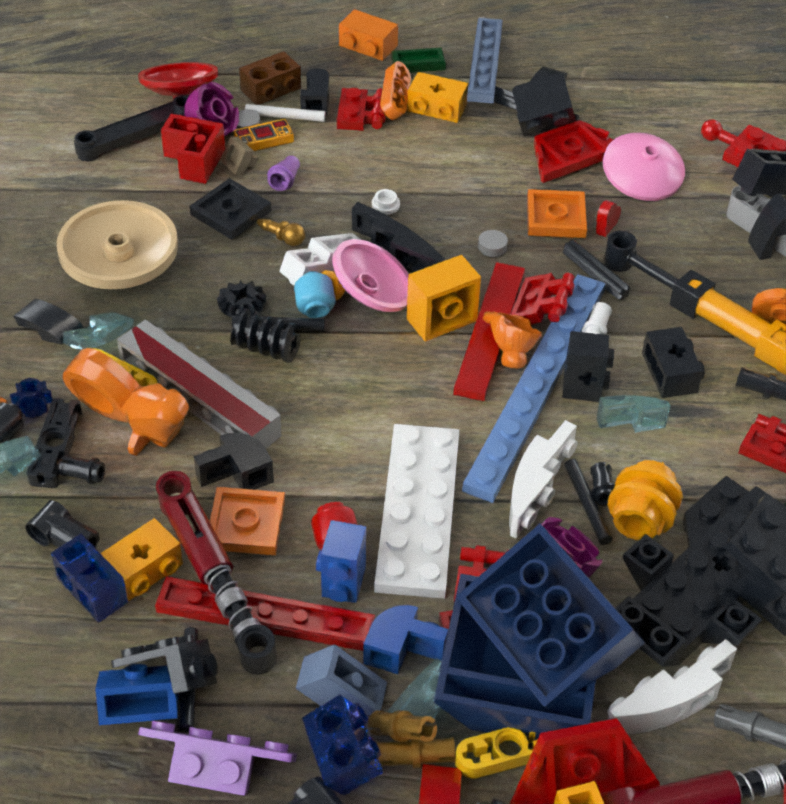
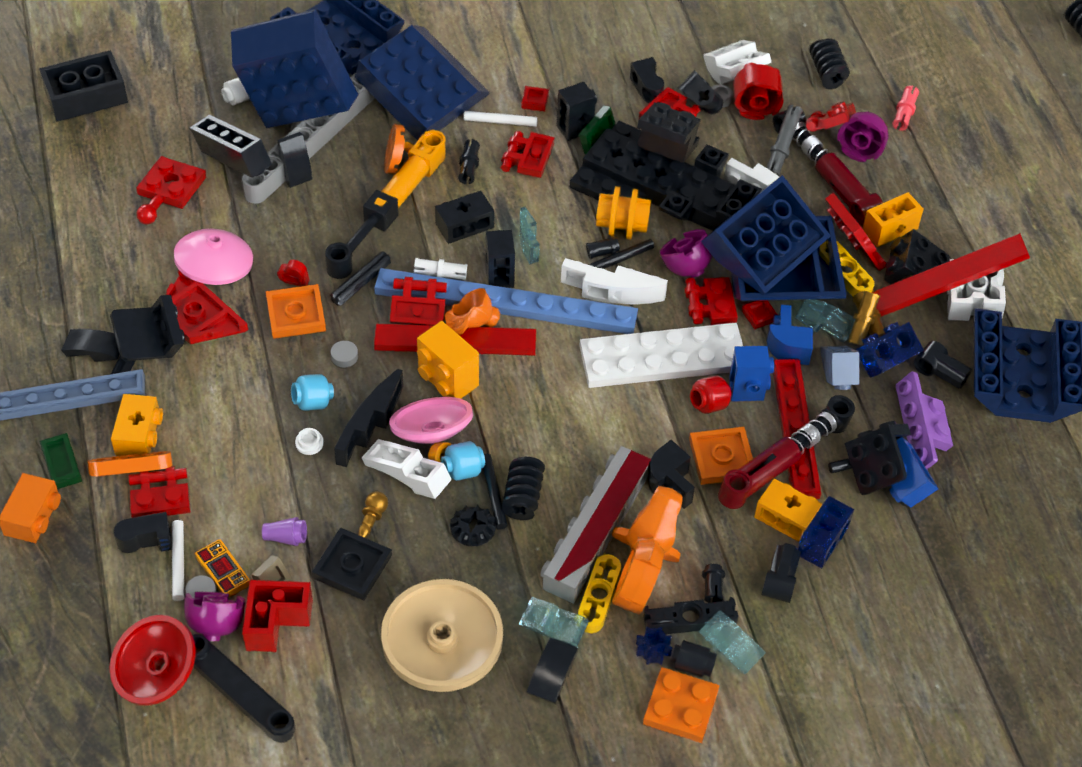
camera: 105 degrees left, 5 degrees up
(270, 78) = (123, 584): reddish brown brick -> none
(442, 207) = (312, 392): none -> medium azure head

